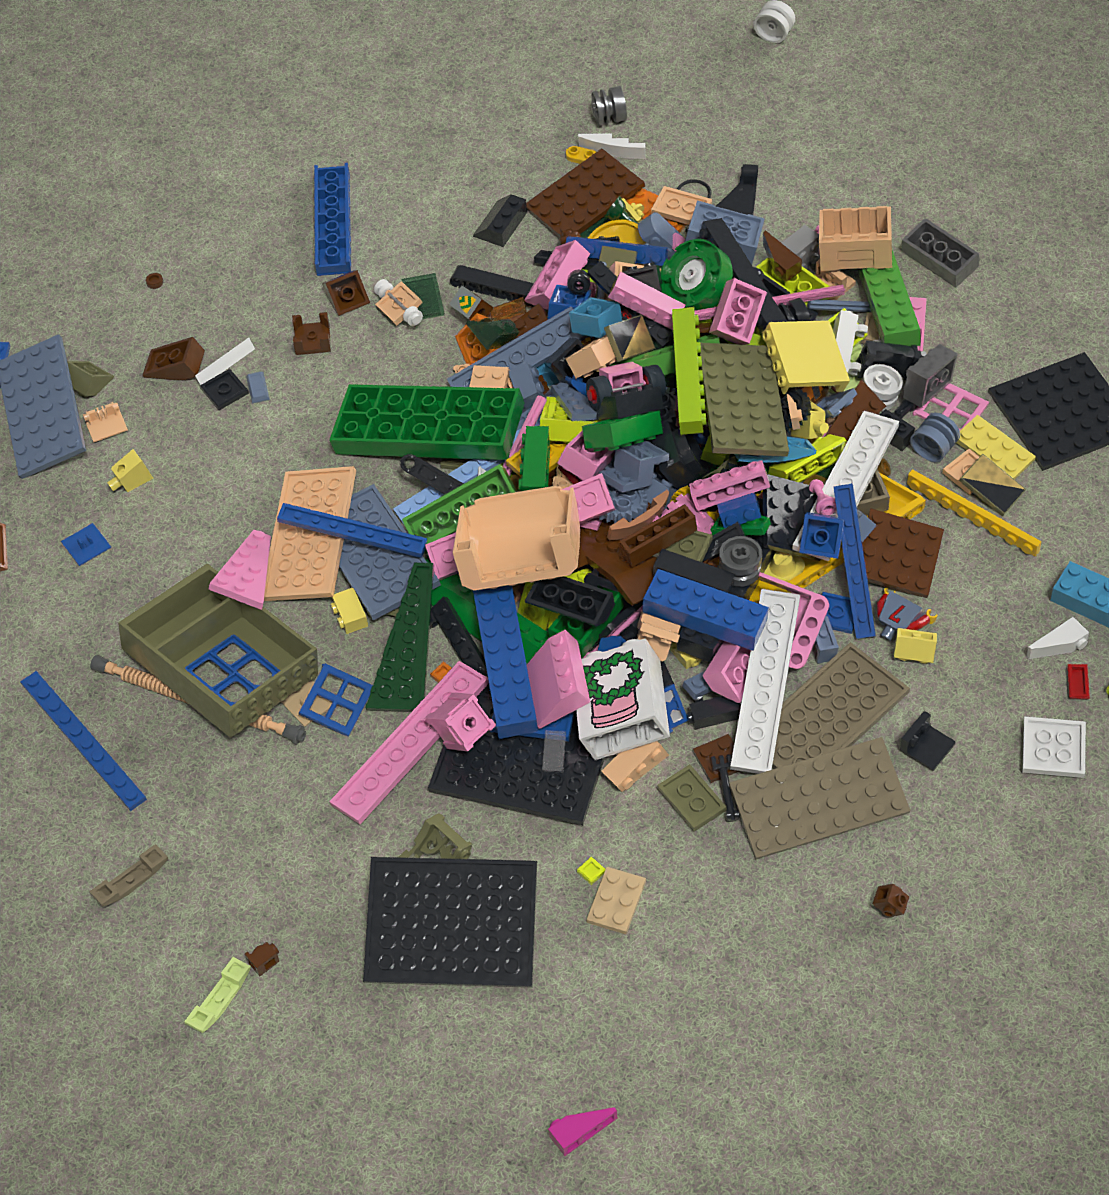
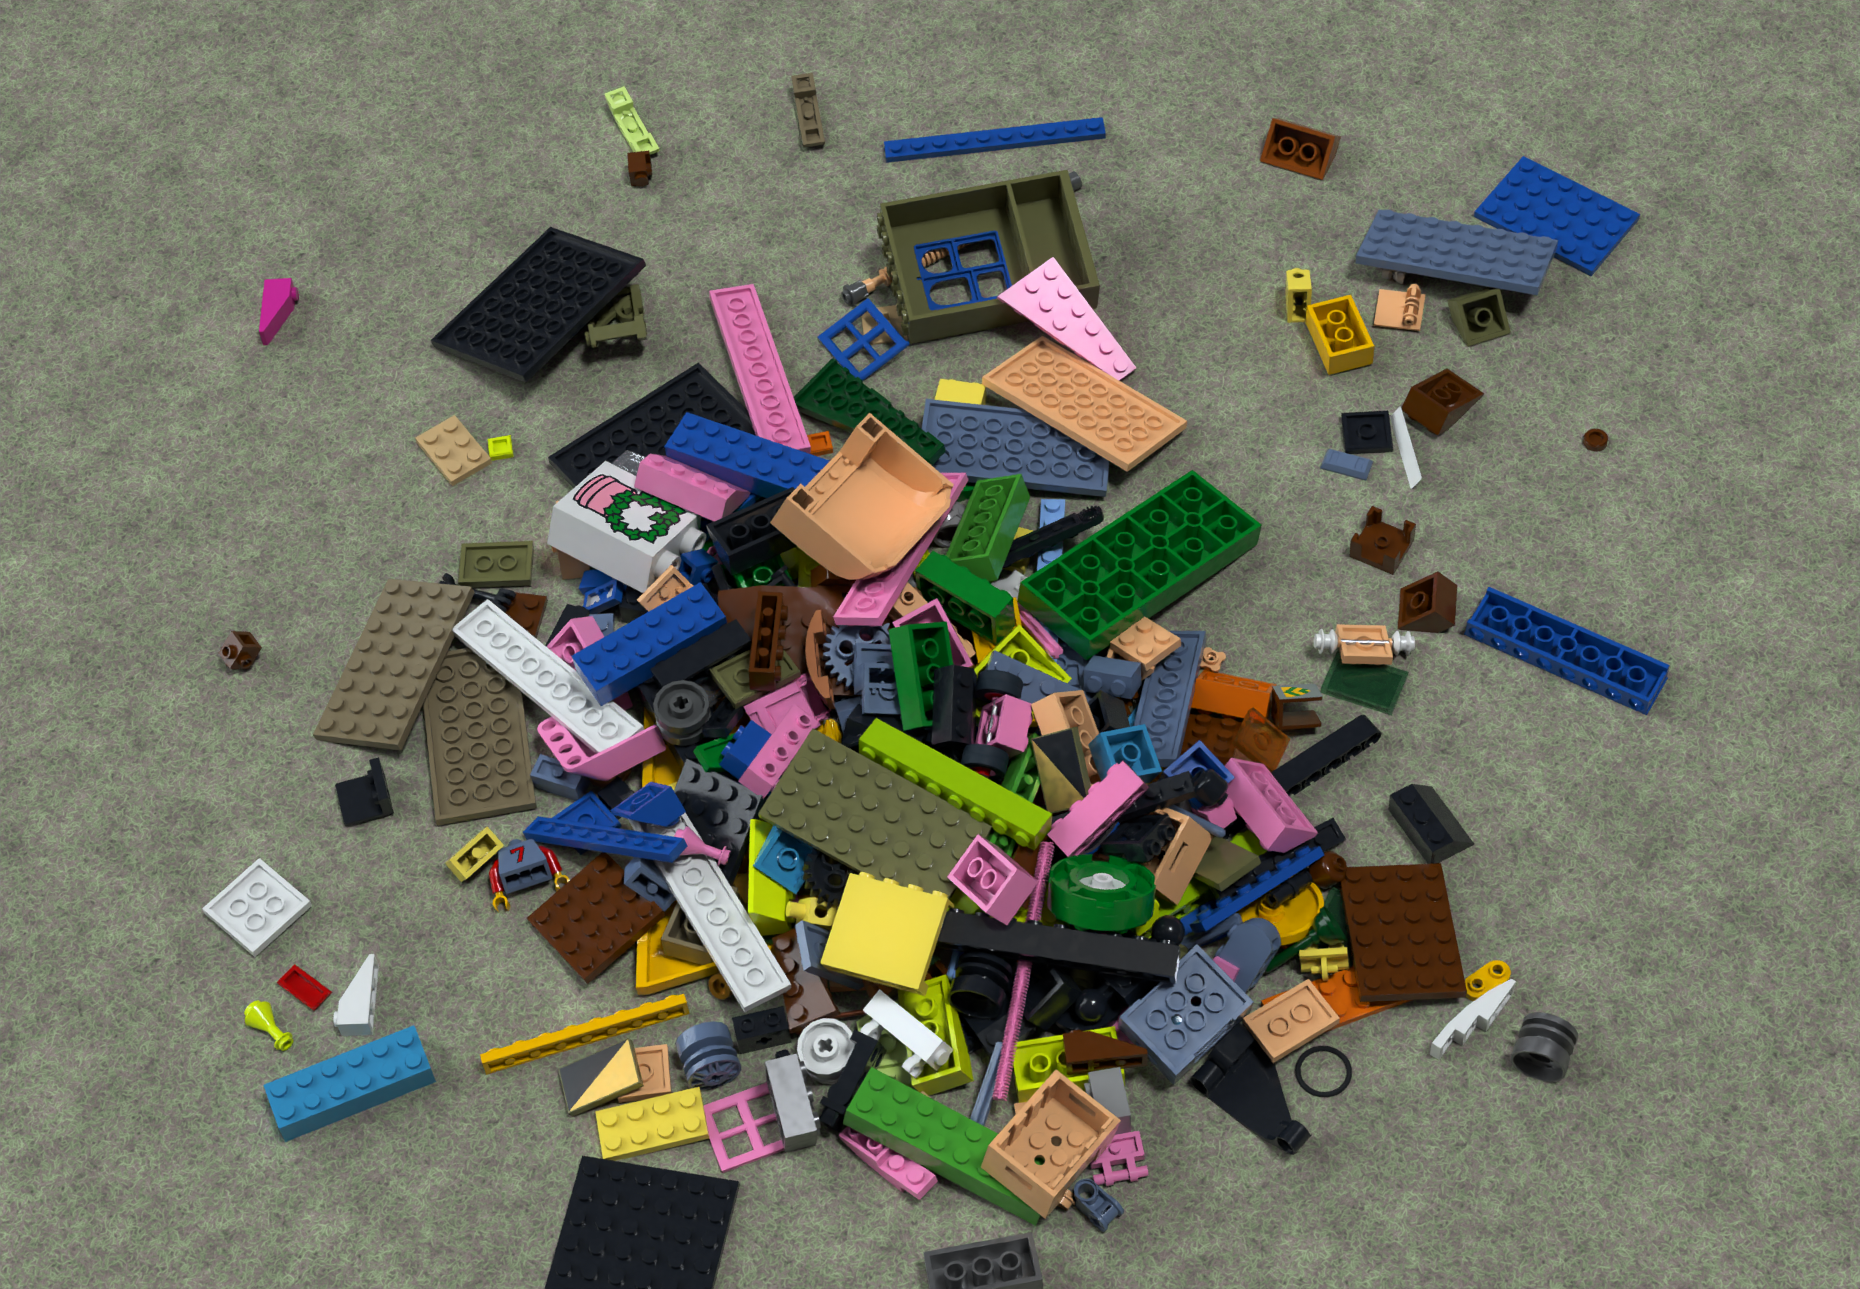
camera: 125 degrees right, 0 degrees up
(86, 544) = (1240, 233): blue piece -> none
(154, 433) = (1339, 334): none -> yellow brick
(352, 530) = (1038, 420): blue plate -> none
(451, 722) = (723, 391): bright pink container -> none
(493, 331) = (1225, 687): clear green slope -> none
(795, 414) = (812, 859): light nougat plate -> none

